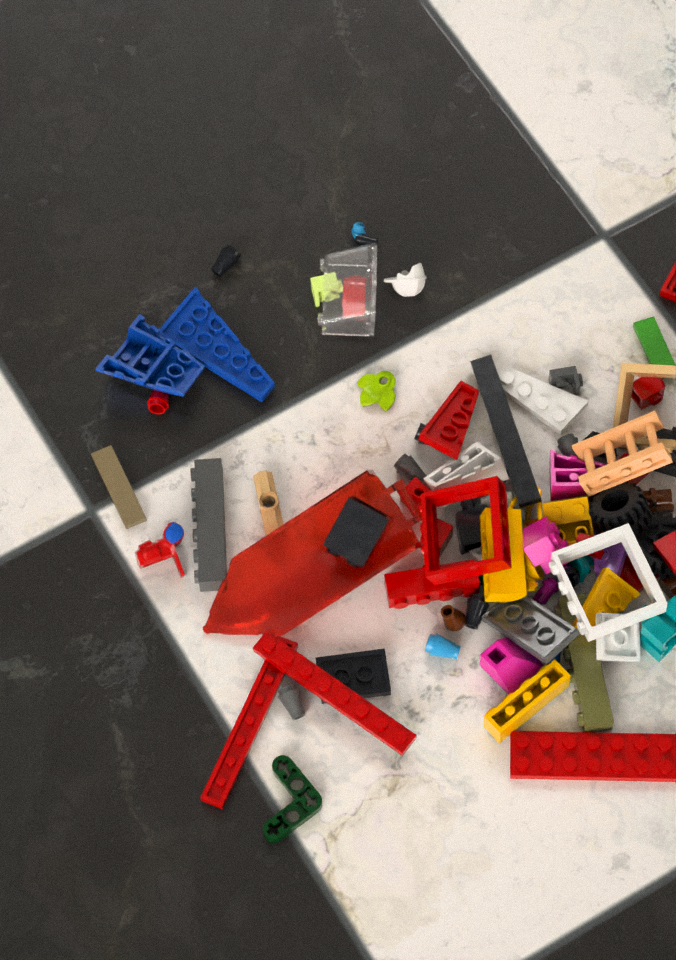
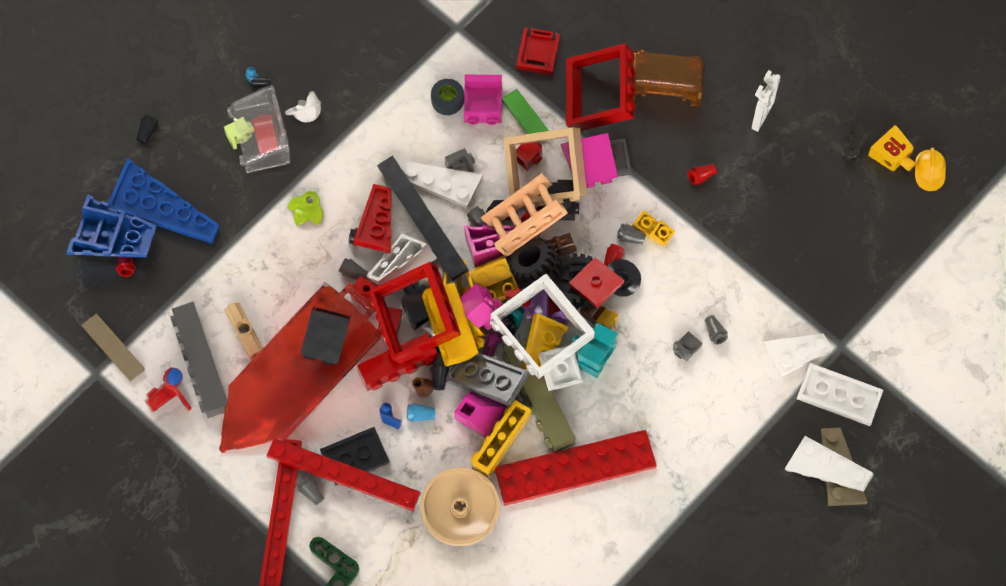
camera: 20 degrees left, 5 degrees up
(402, 642) = (387, 416): none -> blue arm
(457, 764) = (460, 506): none -> tan dish
(571, 306) = (449, 90): none -> black wheel
(611, 318) = (482, 99): none -> dark pink panel
(633, 580) = (559, 317): none -> medium lavender tile

